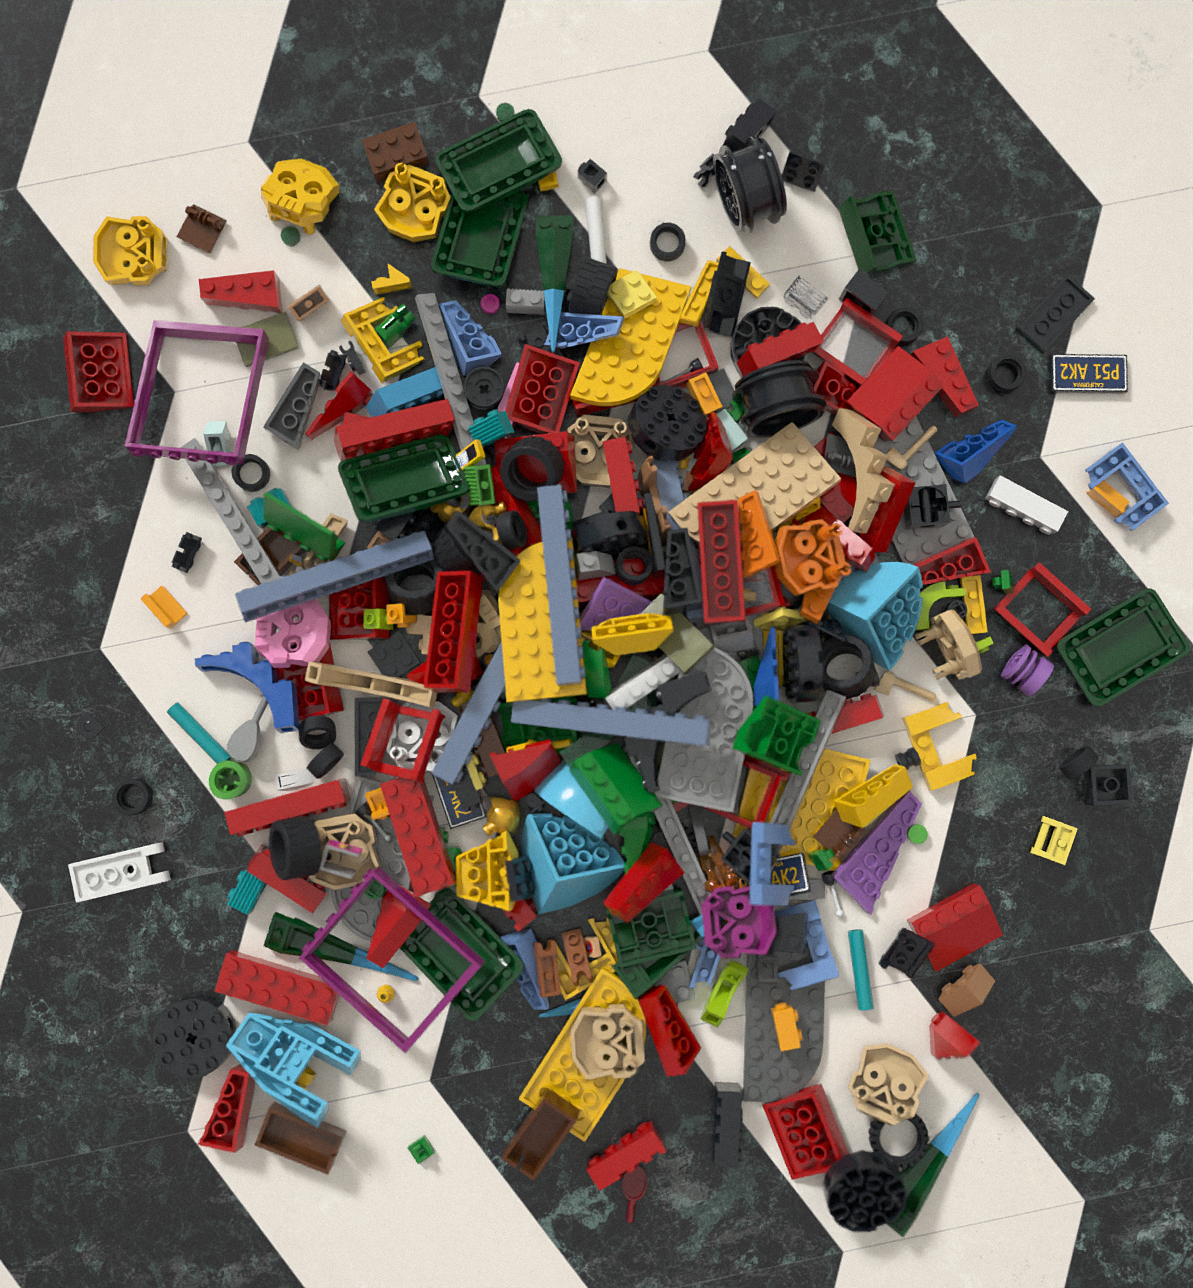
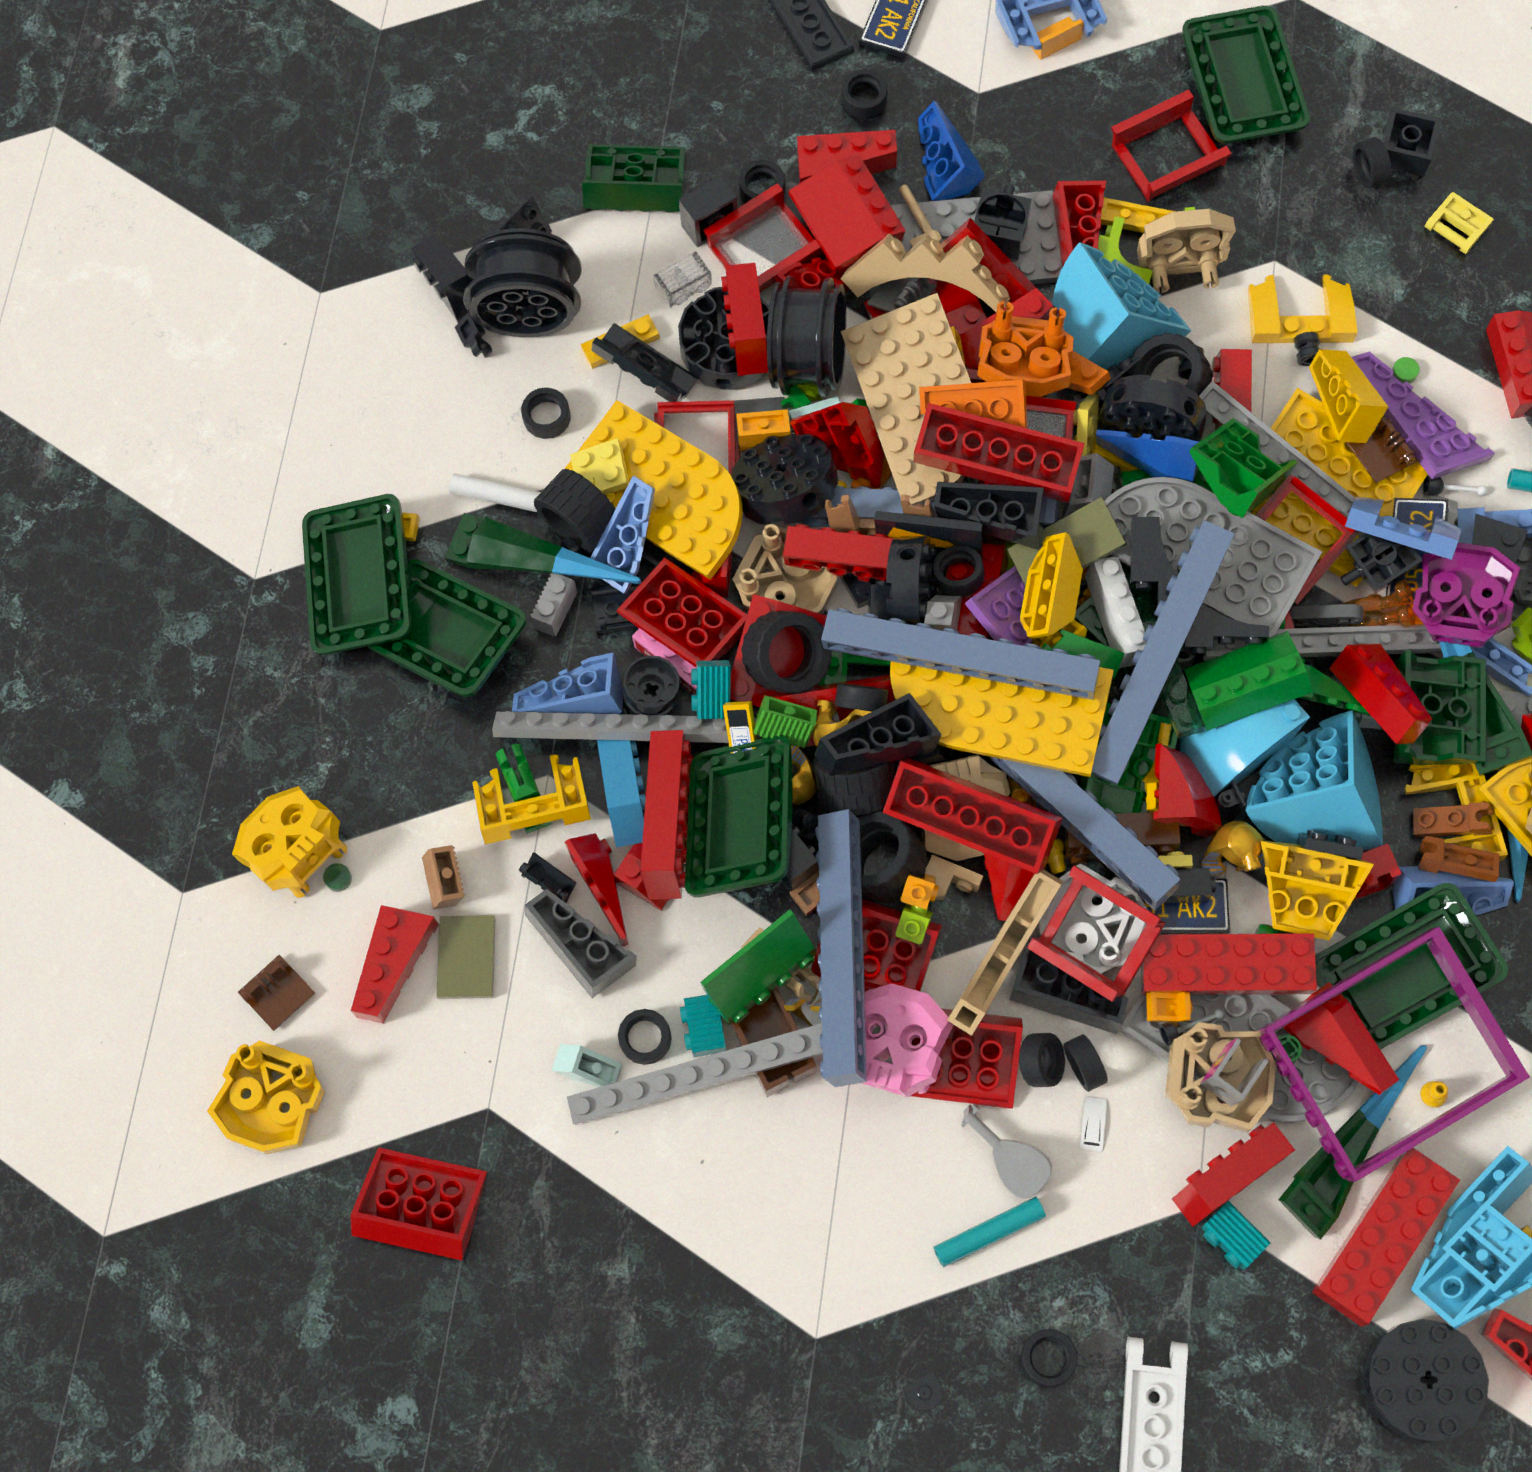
camera: 65 degrees left, 15 degrees down
(147, 378) = (430, 1022): magenta door -> none
(164, 607) = (789, 1221): light orange panel -> none
(184, 560) = (730, 1163): black hinge -> none
(230, 779) = (1071, 1202): bright green hat -> none
(244, 663) = (910, 1133): blue arch -> none
(291, 805) = (1135, 1133): red brick -> none
(295, 848) = (1202, 1103): black tyre -> none
(355, 362) = (543, 845): black plate -> none
(394, 656) = (967, 929): black plate -> none
(395, 147) = (286, 701): reddish brown brick -> none
(396, 282) = (458, 757): yellow slope -> none
(407, 218) = (380, 714): yellow brick -> none
(490, 304) = (536, 652): dark pink tile -> none
(504, 111) = (291, 552): clear green tile -> none
(592, 168) = (421, 472): black brick -> none
(592, 946) = (1443, 796): light nougat tile -> none
(693, 366) = (719, 433): hinge -> none
(699, 296) = (630, 391): yellow tile -> none
(821, 859) = (1409, 481): green tile -> none
(888, 679) = (1200, 338): tan piece -> none
(955, 605) = (1133, 235): black wheel -> none
(1004, 582) = (1120, 174): green tile -> none
(1026, 505) = (1034, 123): white brick -> none
(1027, 670) = (1241, 180): medium lavender wheel -> none

